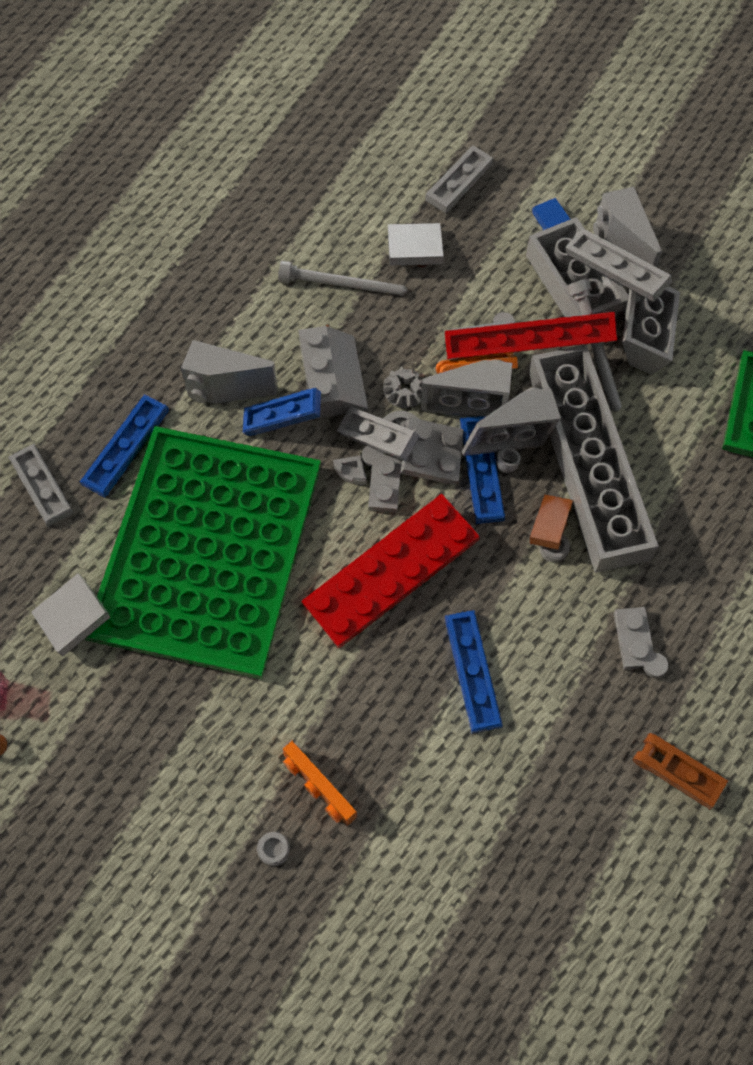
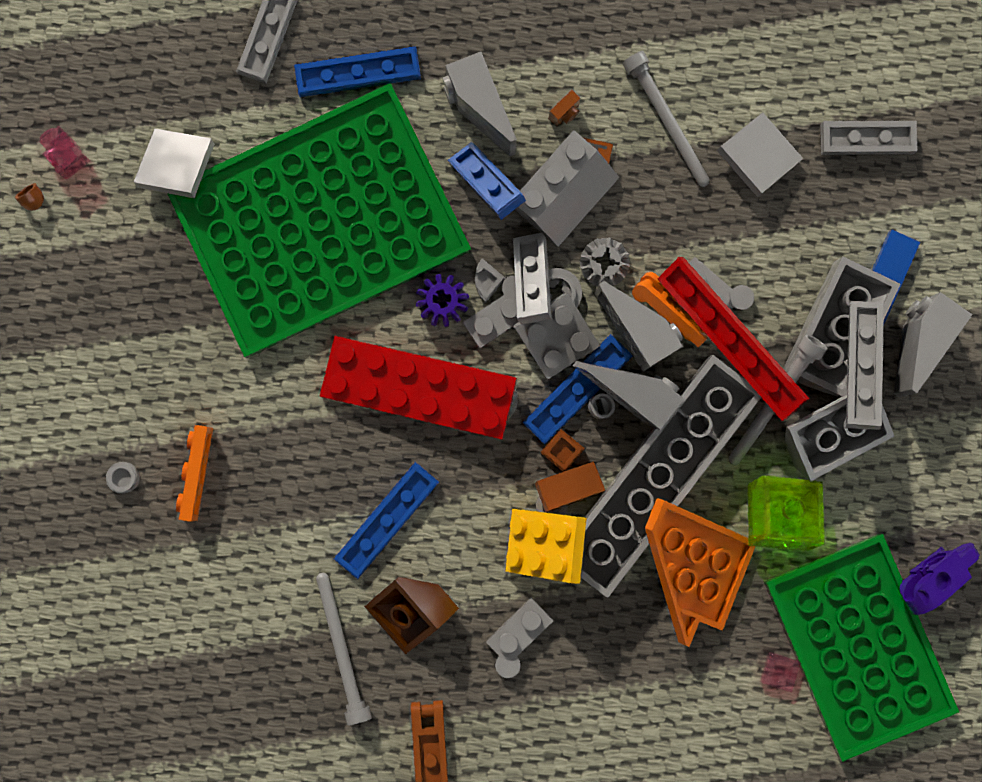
camera: 50 degrees right, 20 degrees up
(278, 333) = (565, 109): none -> dark orange plate
(344, 515) = (434, 308): none -> dark purple gear
(519, 510) = (562, 450): none -> dark orange tile
(559, 702) = (411, 610): none -> reddish brown slope
(585, 560) = (546, 545): none -> yellow plate
(608, 804) = (356, 708): none -> light grey piece
(681, 473) = (696, 566): none -> orange wing
(683, 395) = (785, 513): none -> clear neon green slope

